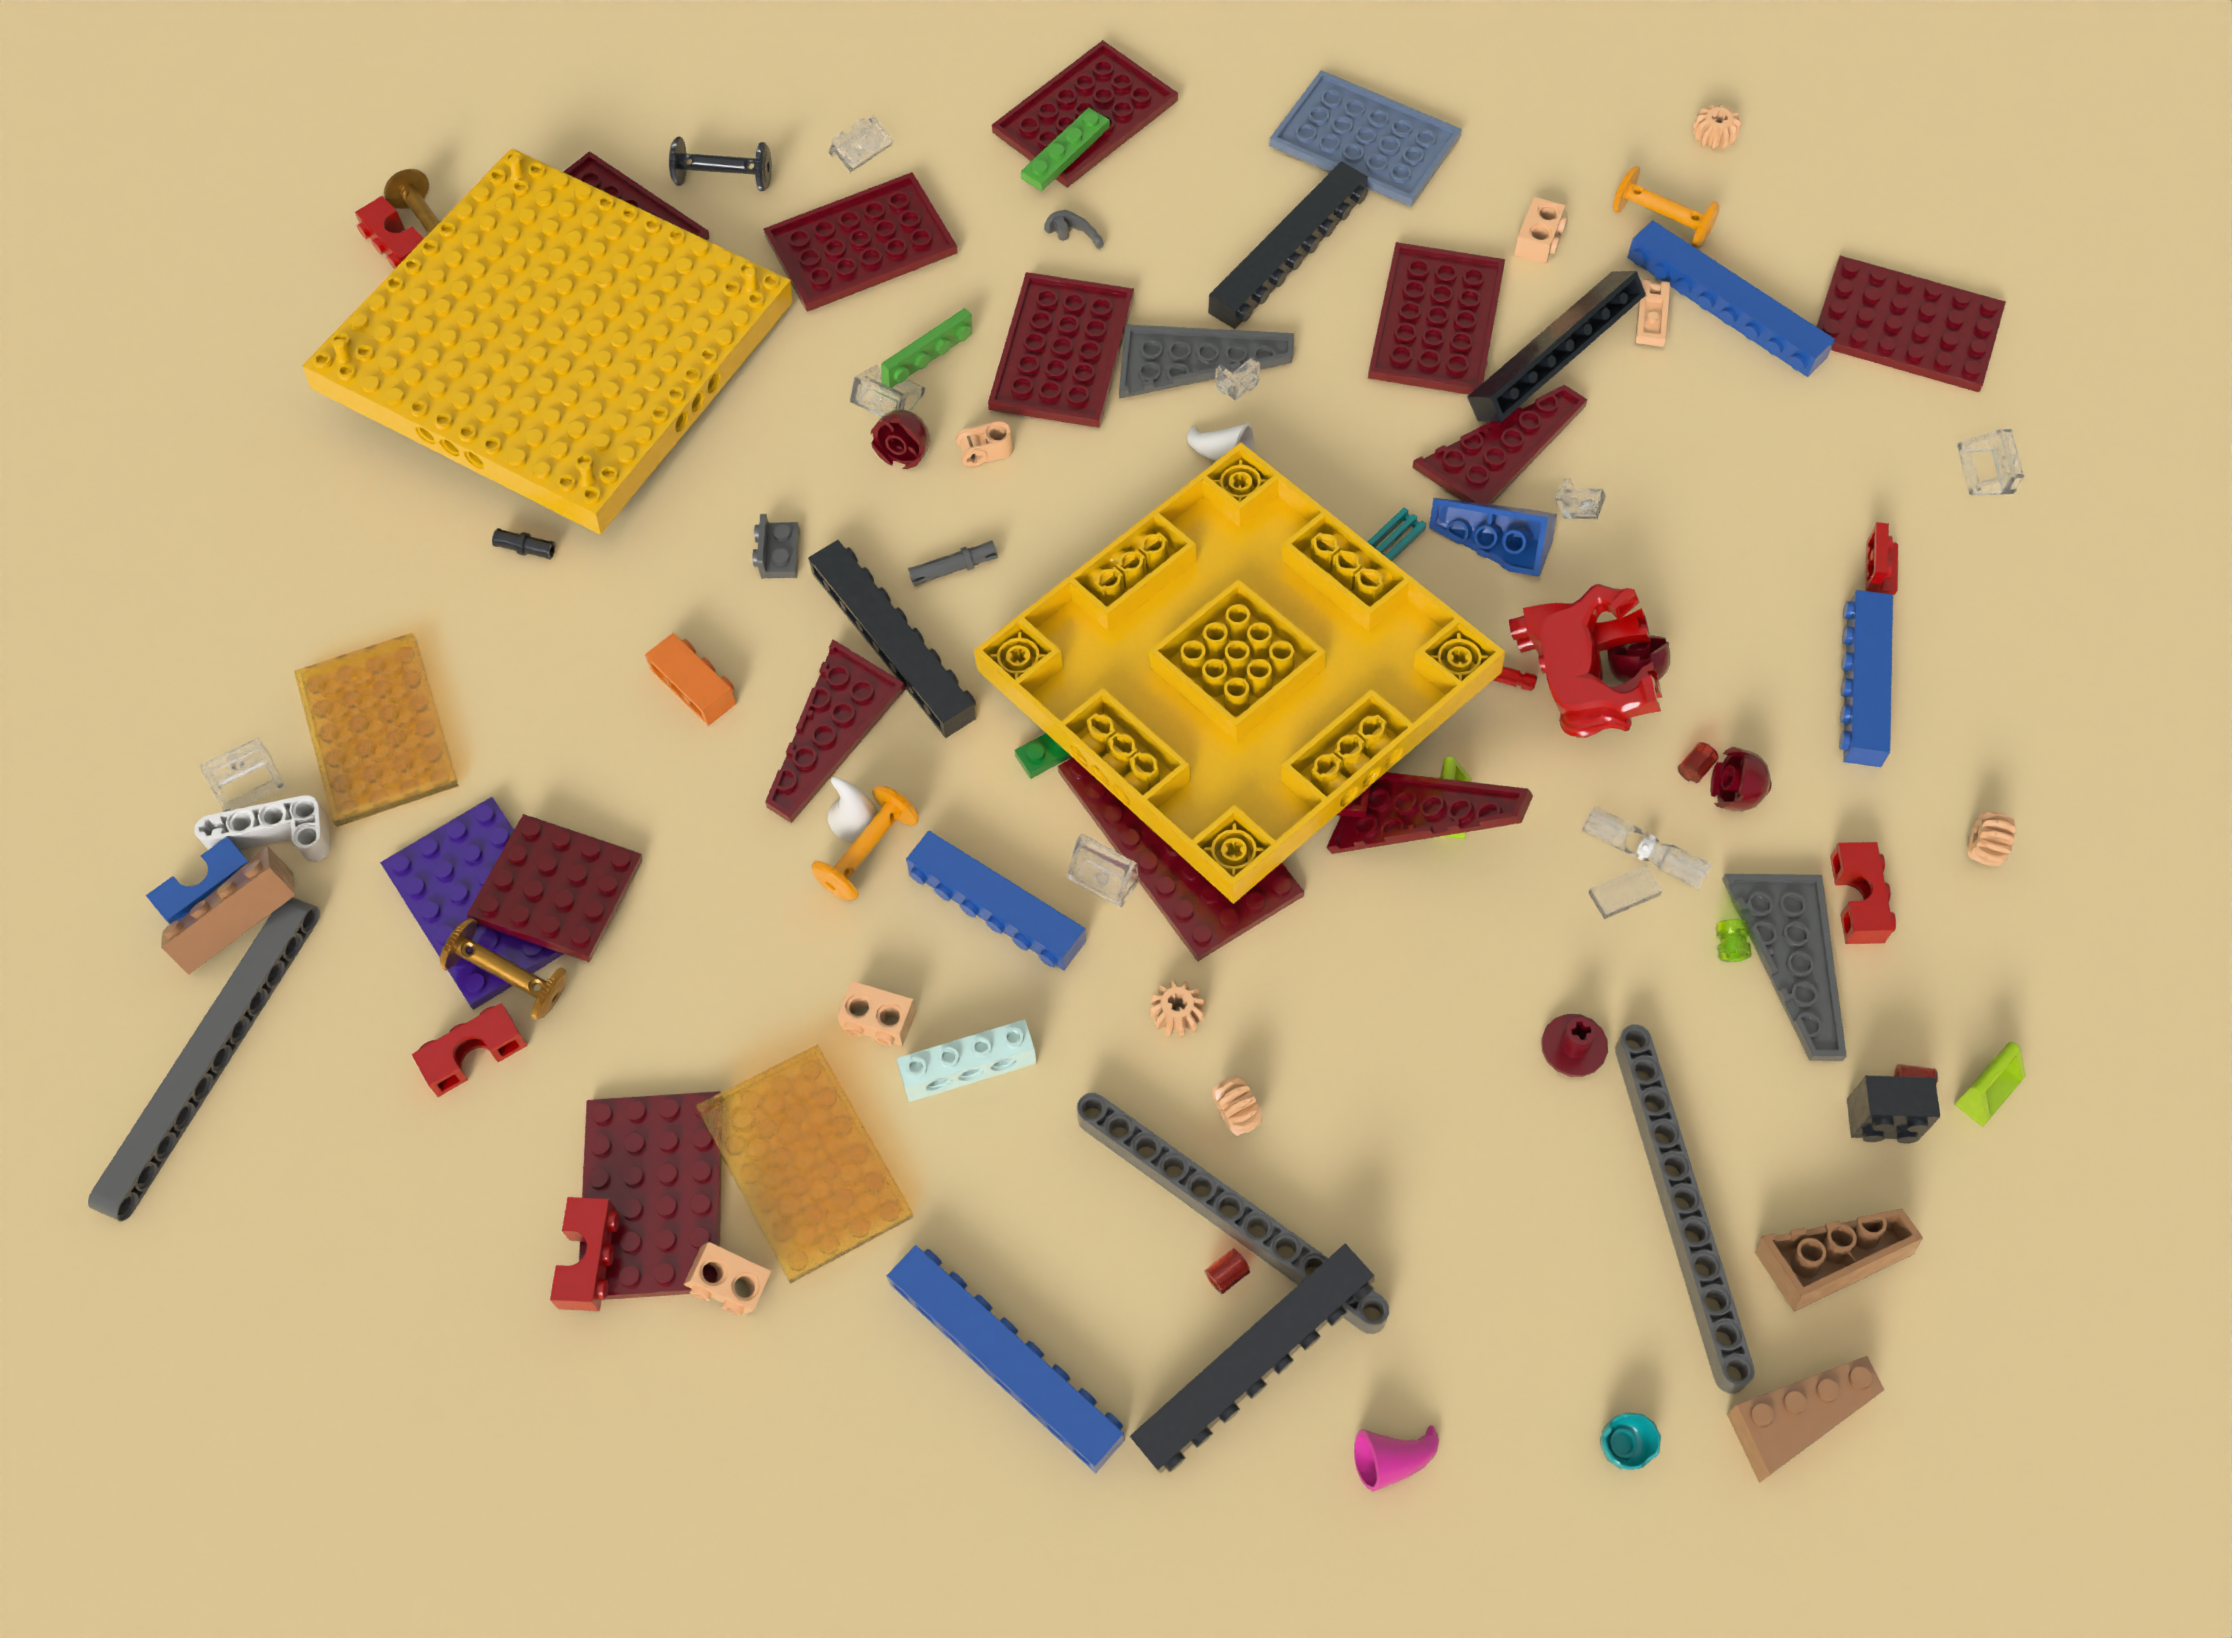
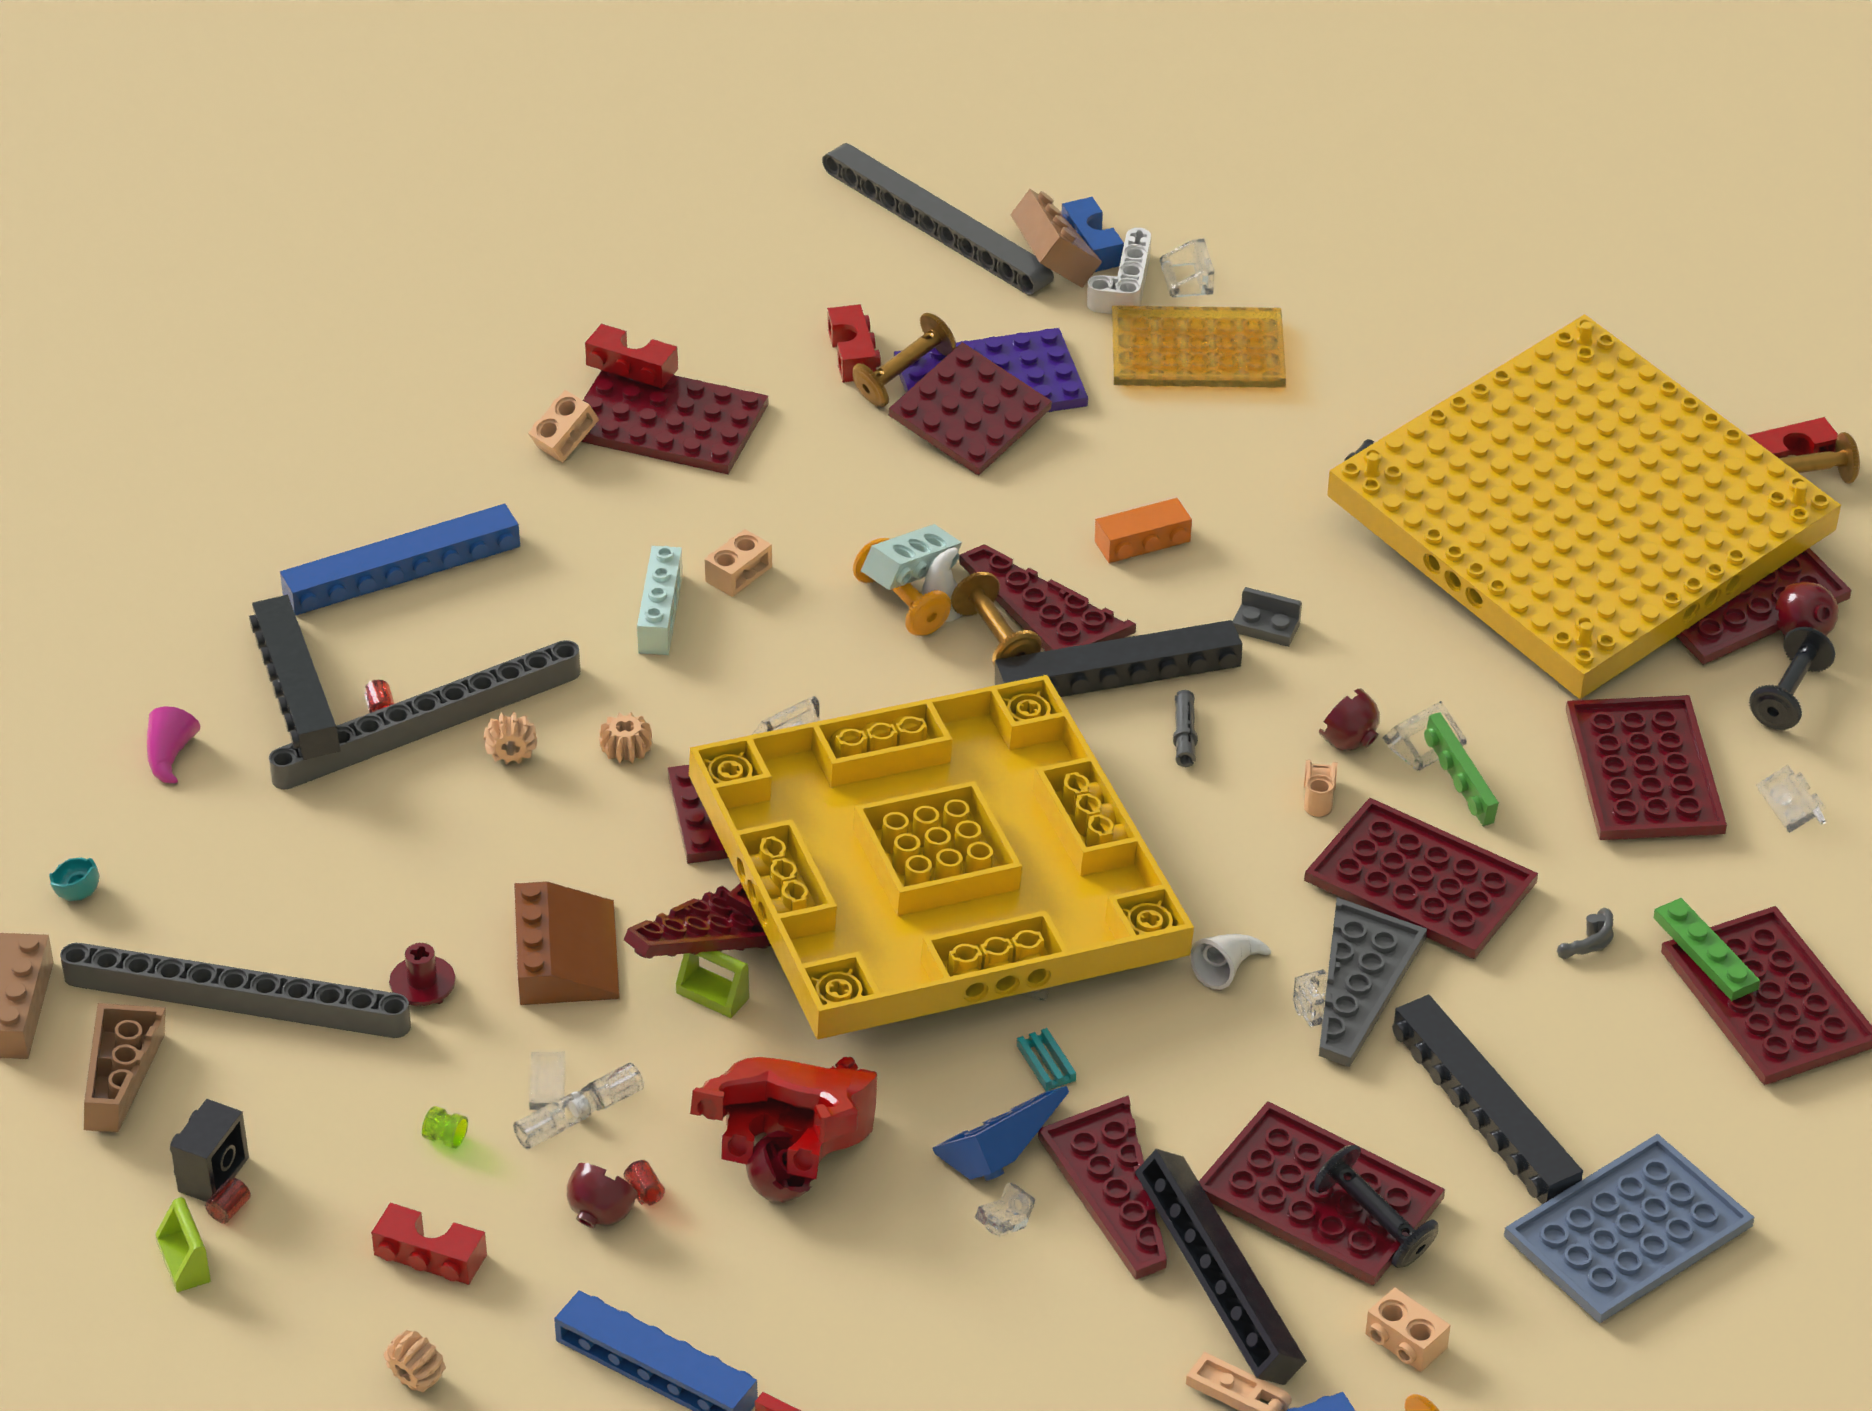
camera: 110 degrees right, 20 degrees down
(636, 163) = (1806, 606): none -> dark red cylinder
(804, 1163) = (633, 489): clear yellow plate -> none
(832, 837) = (908, 556): none -> light aqua brick
(919, 714) = (976, 595): none -> pearl gold hose
(996, 901) = (800, 658): blue brick -> none
(1436, 286) = (1340, 1166): none -> black hose
(1470, 944) = (564, 945): none -> dark orange slope
(1795, 946) = (409, 1172): dark grey wing -> none

